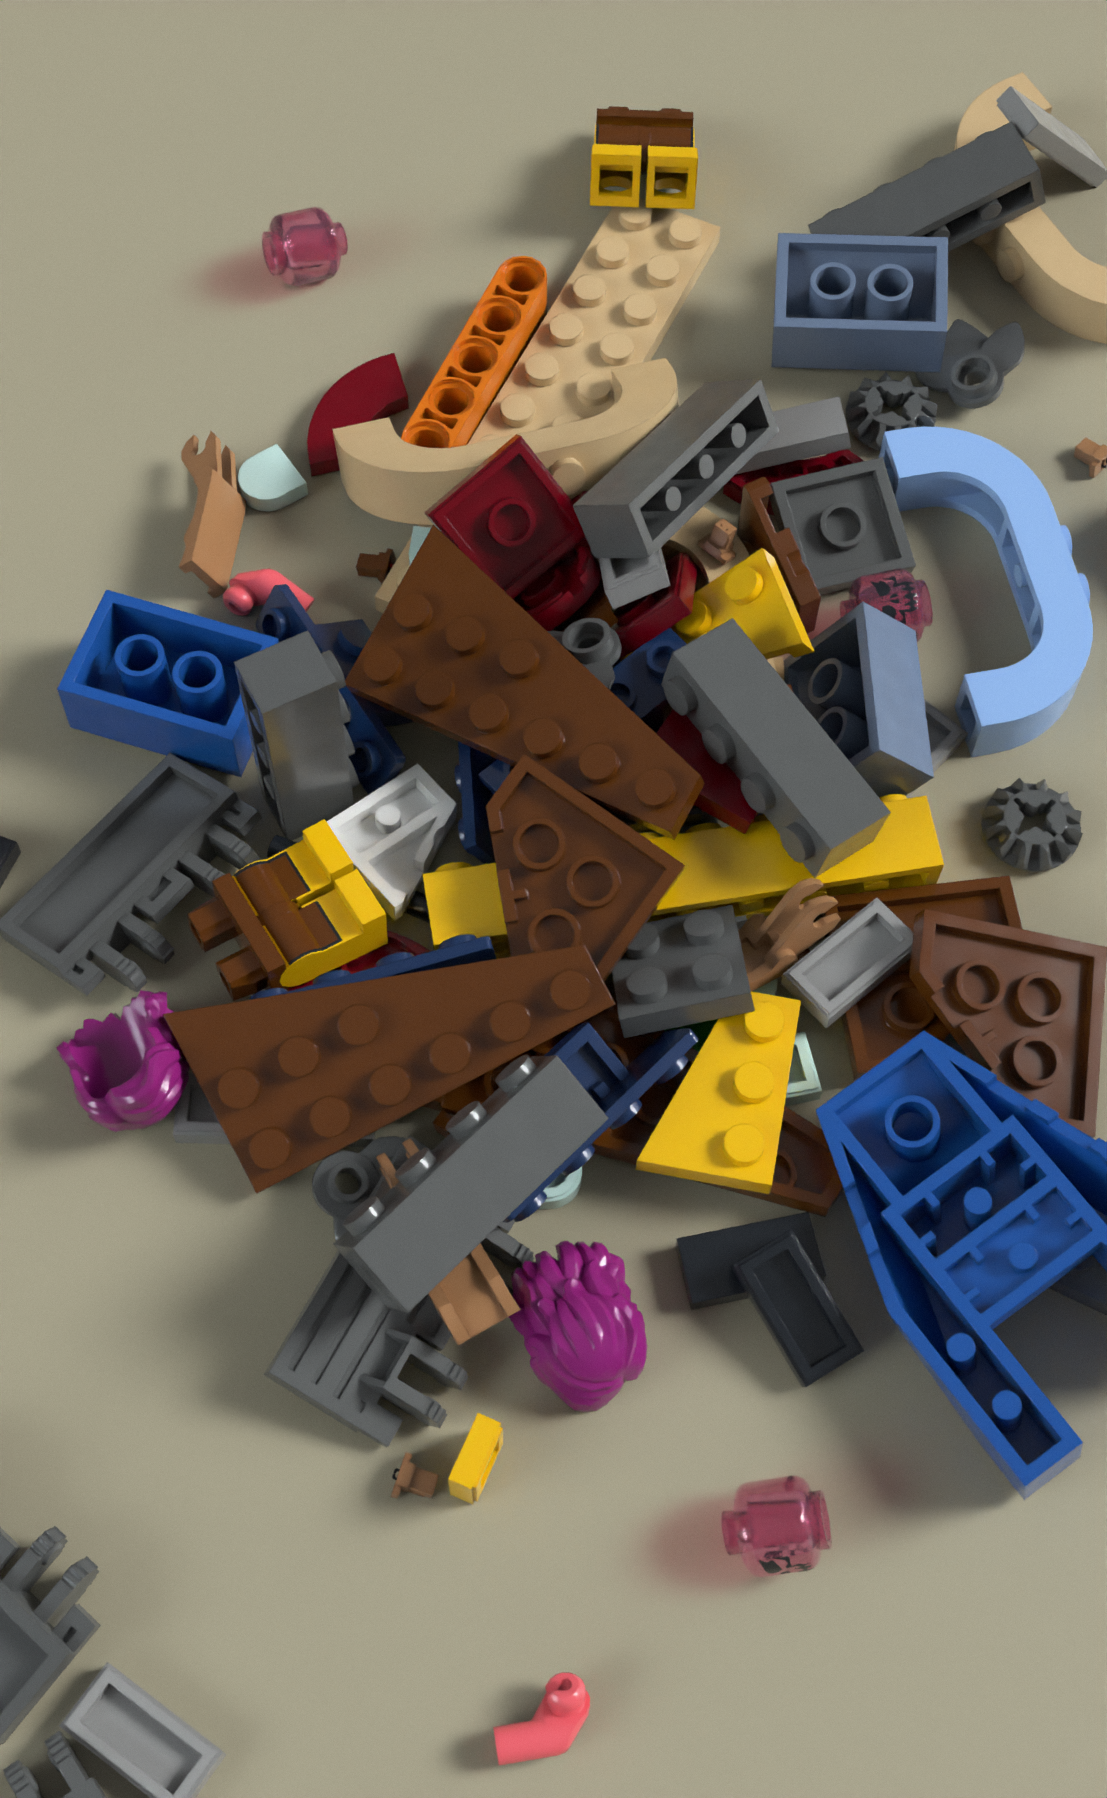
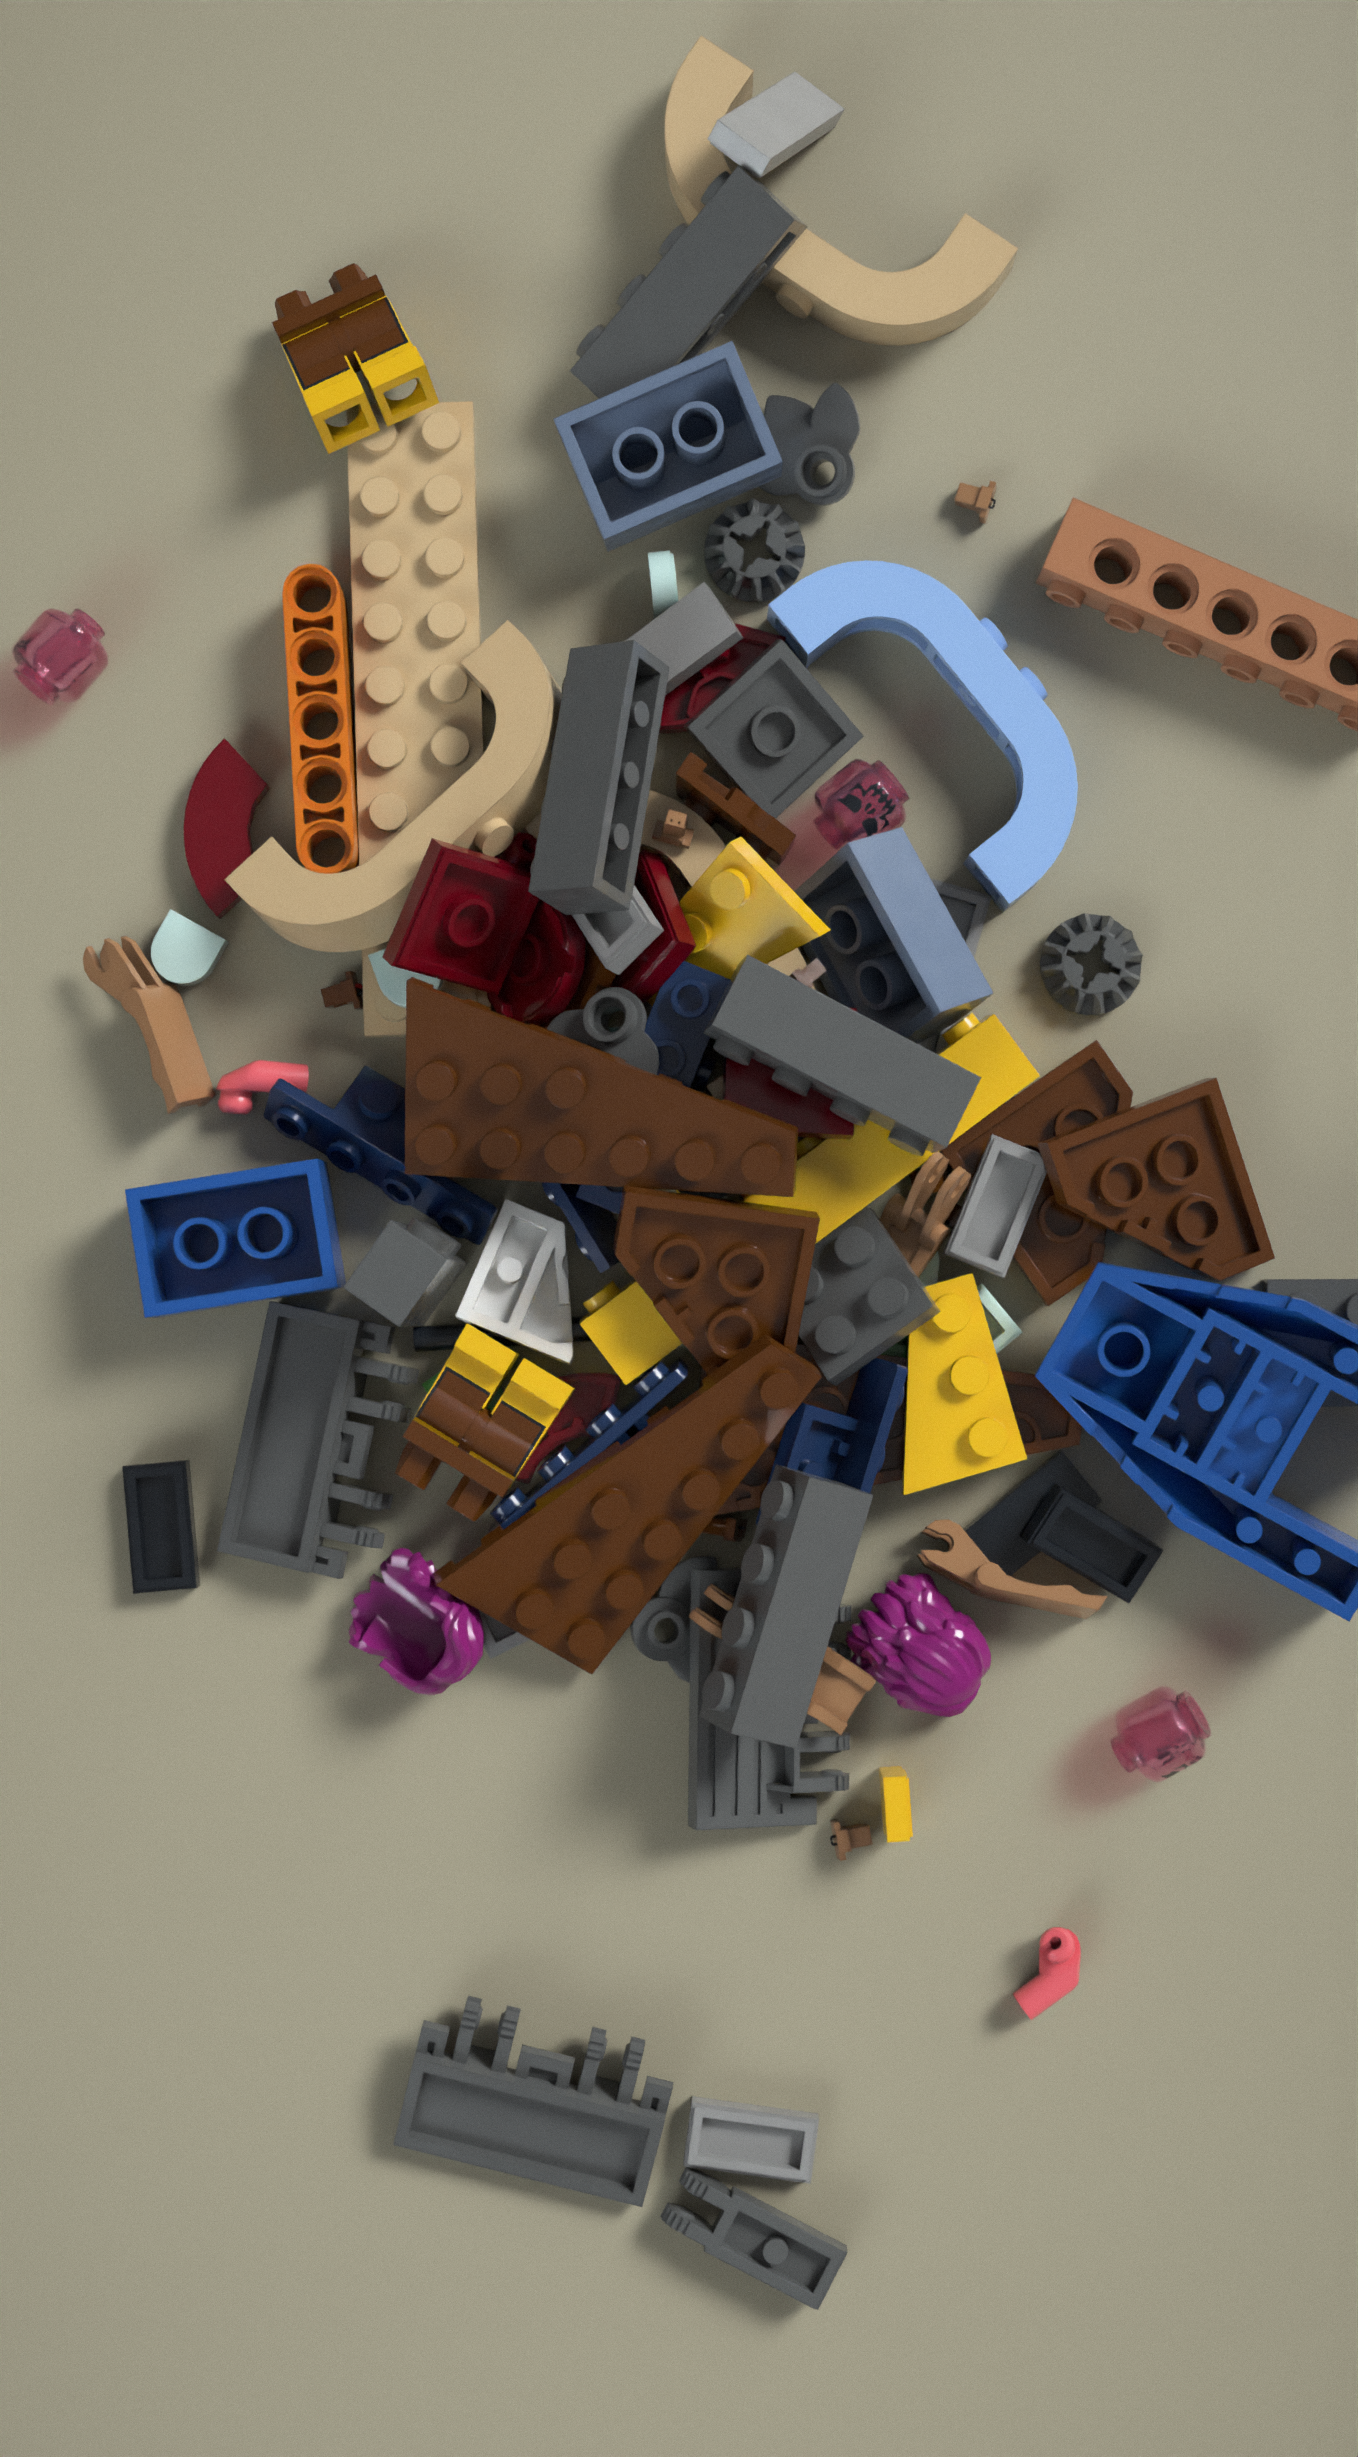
camera: 20 degrees left, 25 degrees up
(661, 1266) = (972, 1570): none -> medium nougat arm
(806, 387) = (662, 581): none -> light aqua tile

